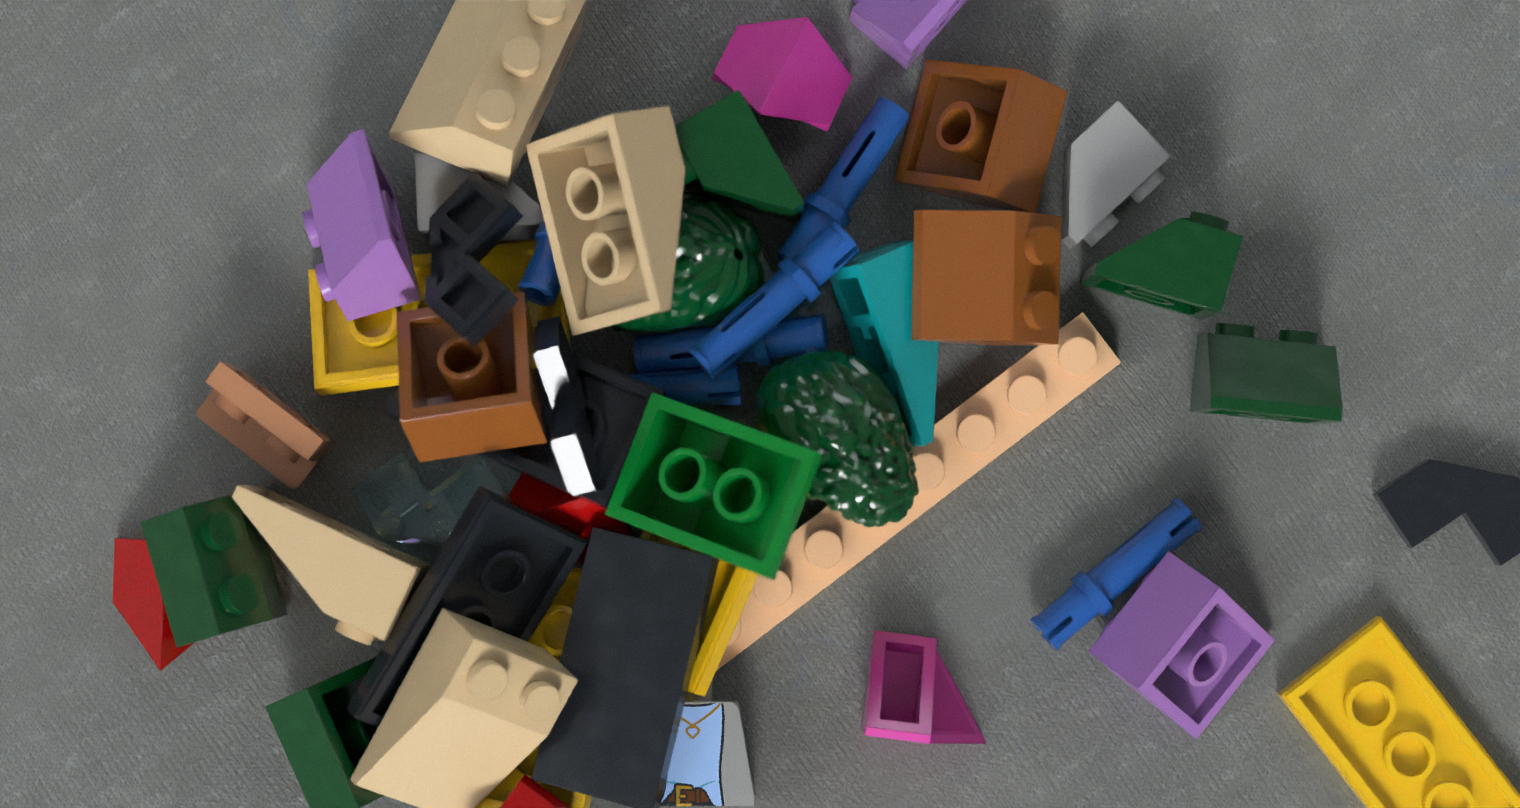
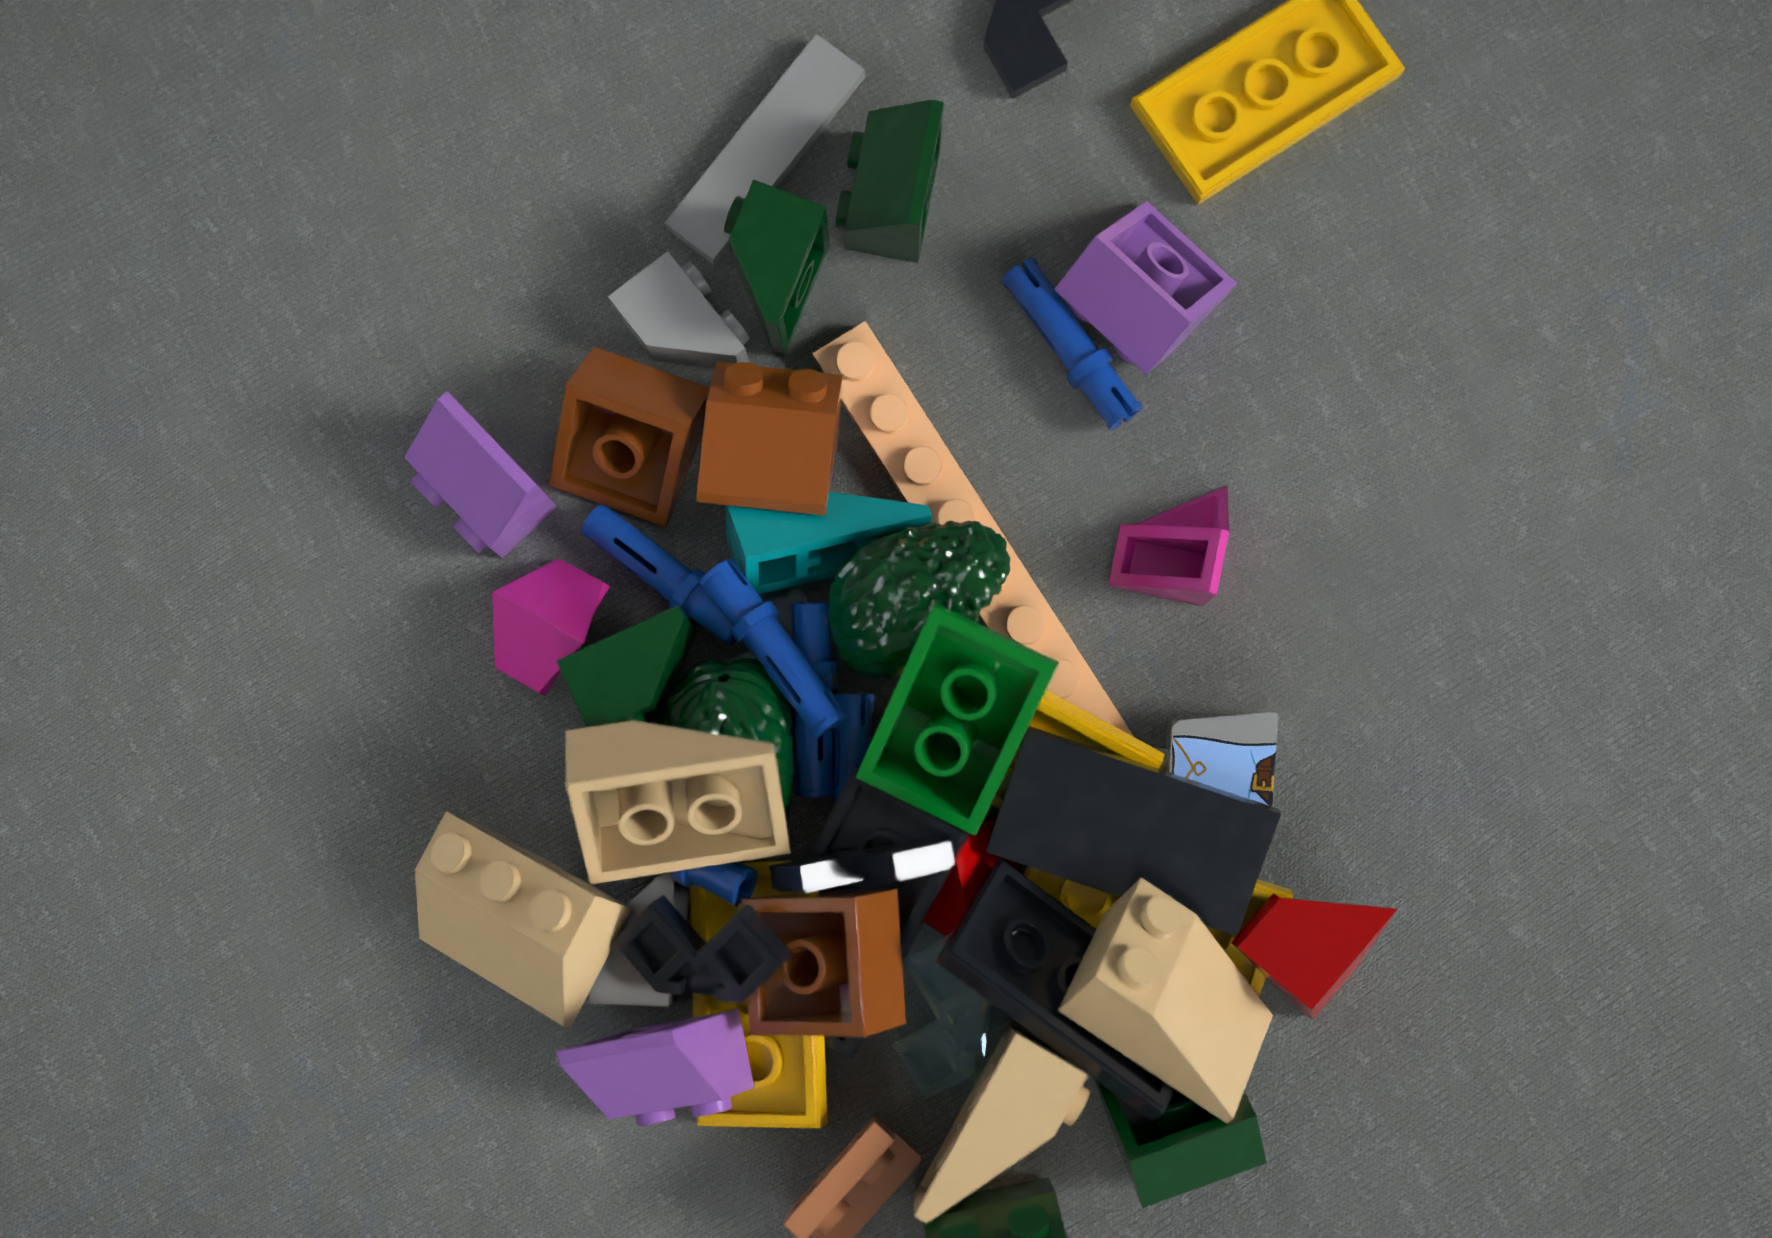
camera: 85 degrees left, 5 degrees down
(1297, 245) = (767, 144): none -> light grey tile

